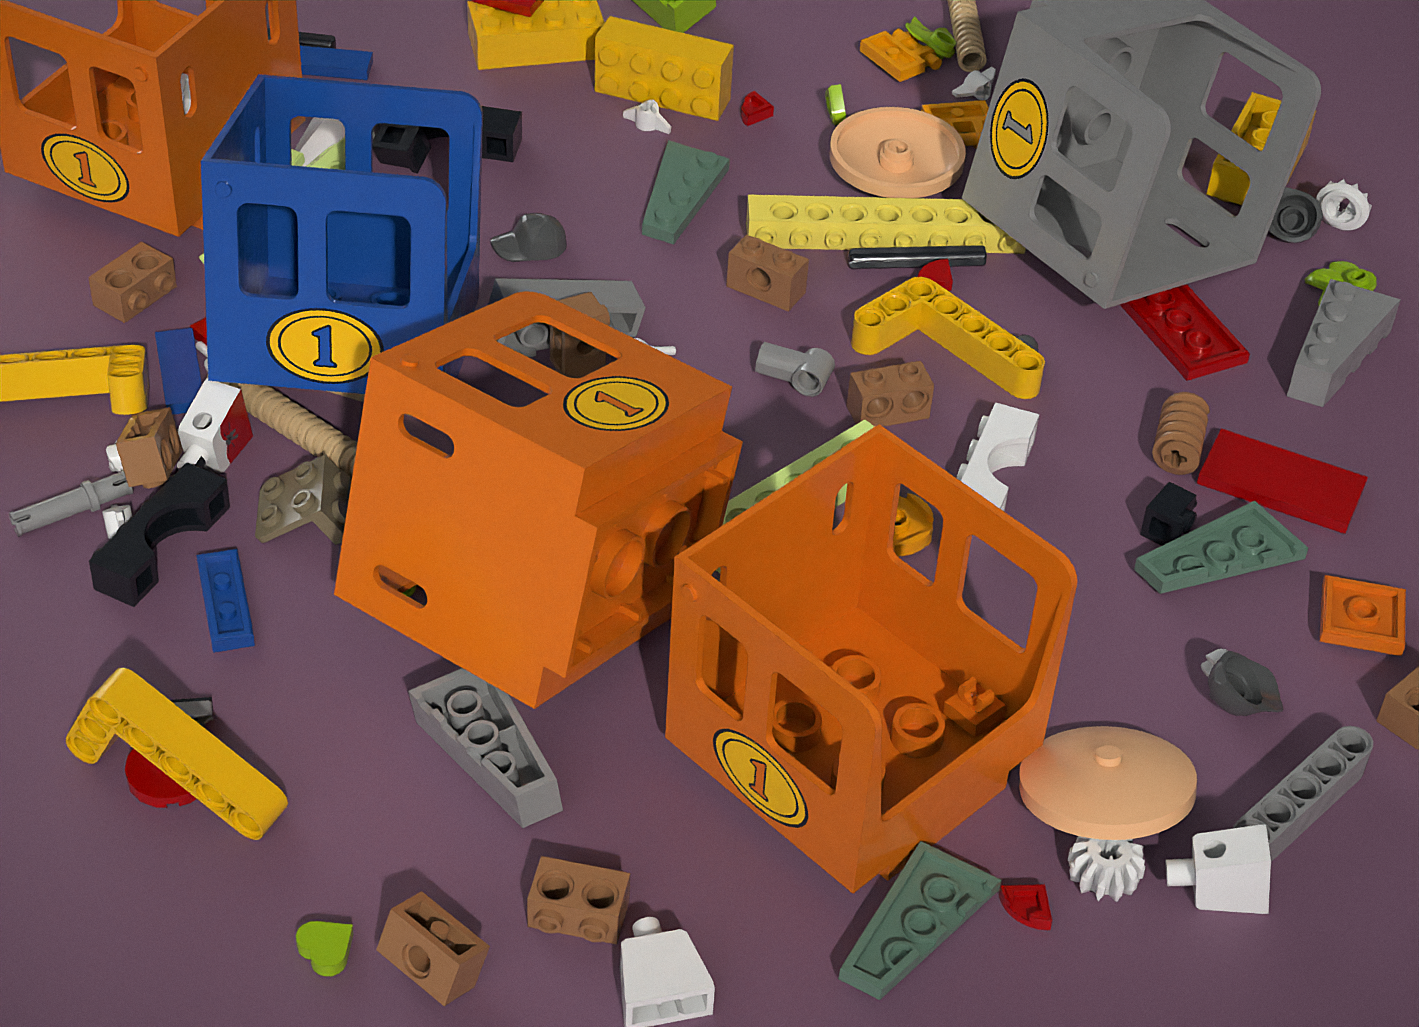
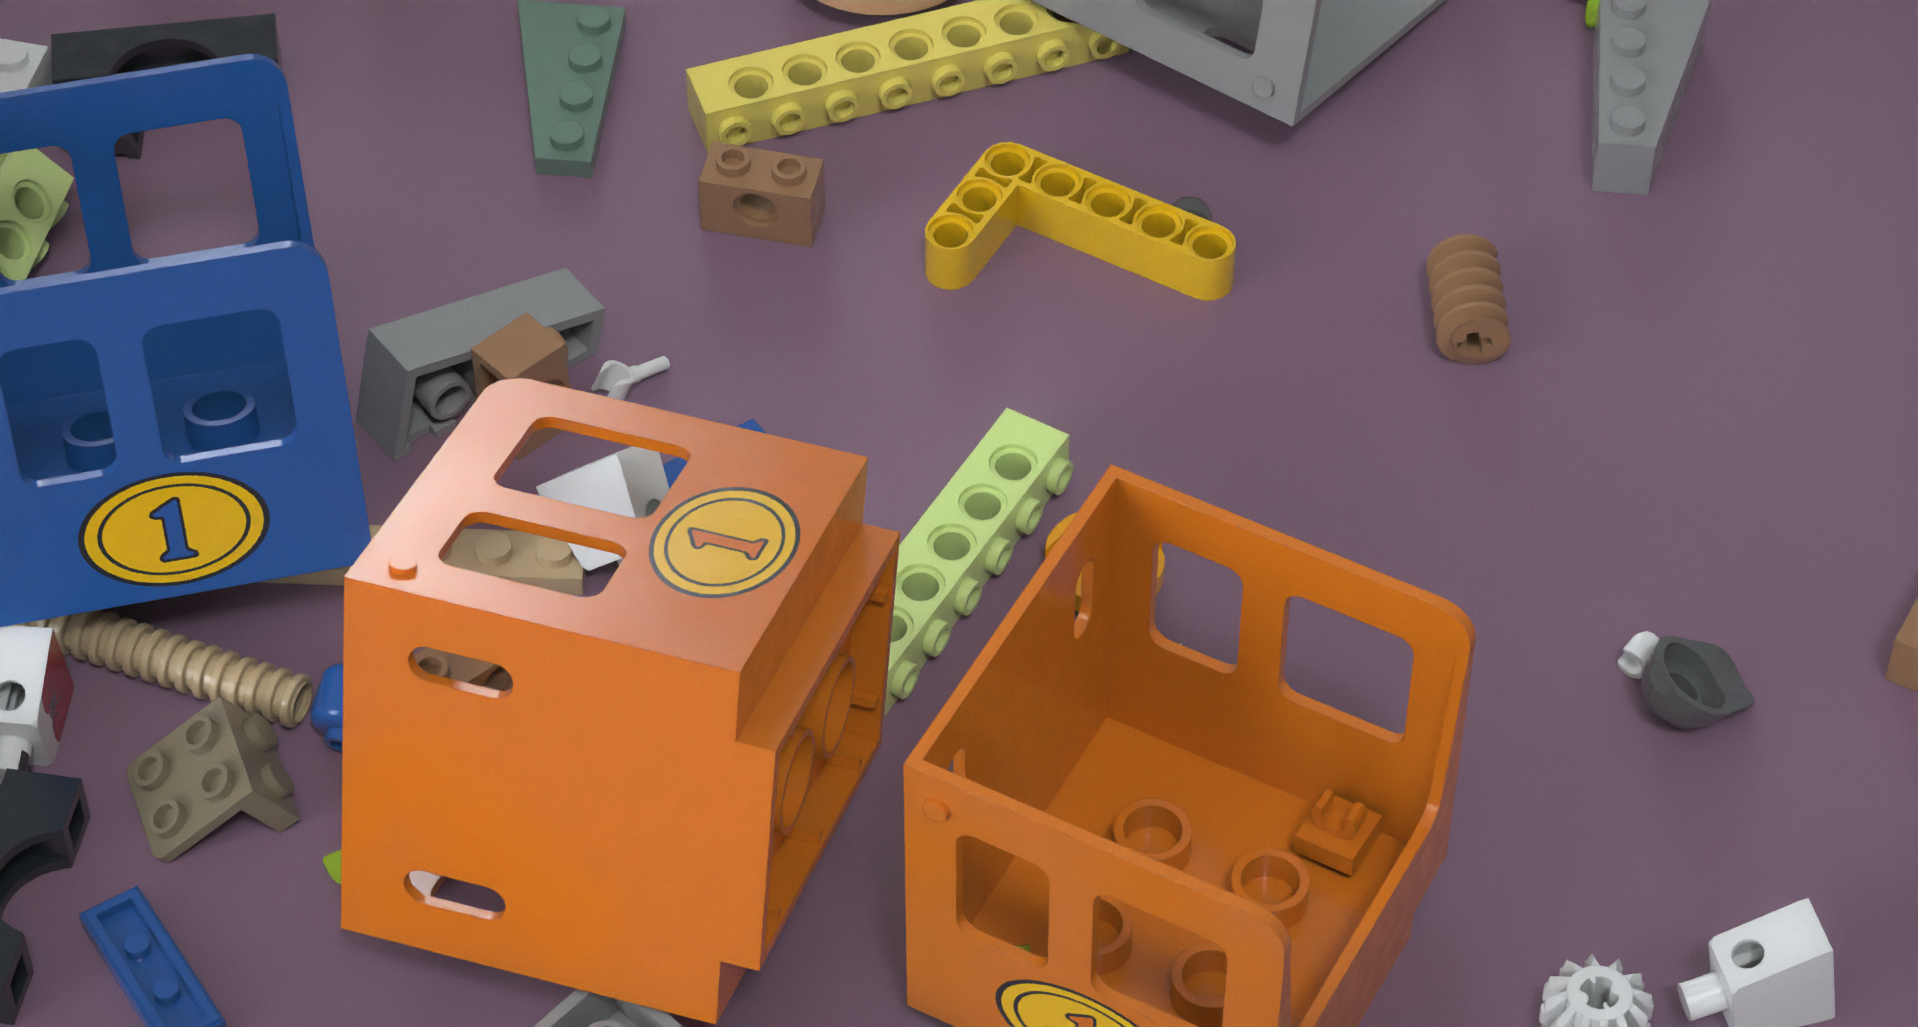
camera: 15 degrees left, 5 degrees up
(533, 238) = (372, 230): dark grey piece -> none
(805, 370) = (881, 344): light grey piece -> none
(890, 394) = (1024, 353): medium nougat brick -> none
(916, 256) = (973, 103): black axle -> none
(939, 272) = (1015, 124): red tile -> none
(1003, 442) = (1219, 386): white arch -> none
(1108, 783) = (1559, 890): light nougat dish -> none
(1169, 514) = (1497, 440): black brick -> none
(1187, 332) = (1417, 126): red tile -> none
(1221, 549) = (1589, 469): sand green wing -> none
(1282, 480) = (1633, 333): red tile -> none
(1311, 788) = (1835, 812): light grey beam -> none
(1363, 615) = (1817, 520): orange plate -> none

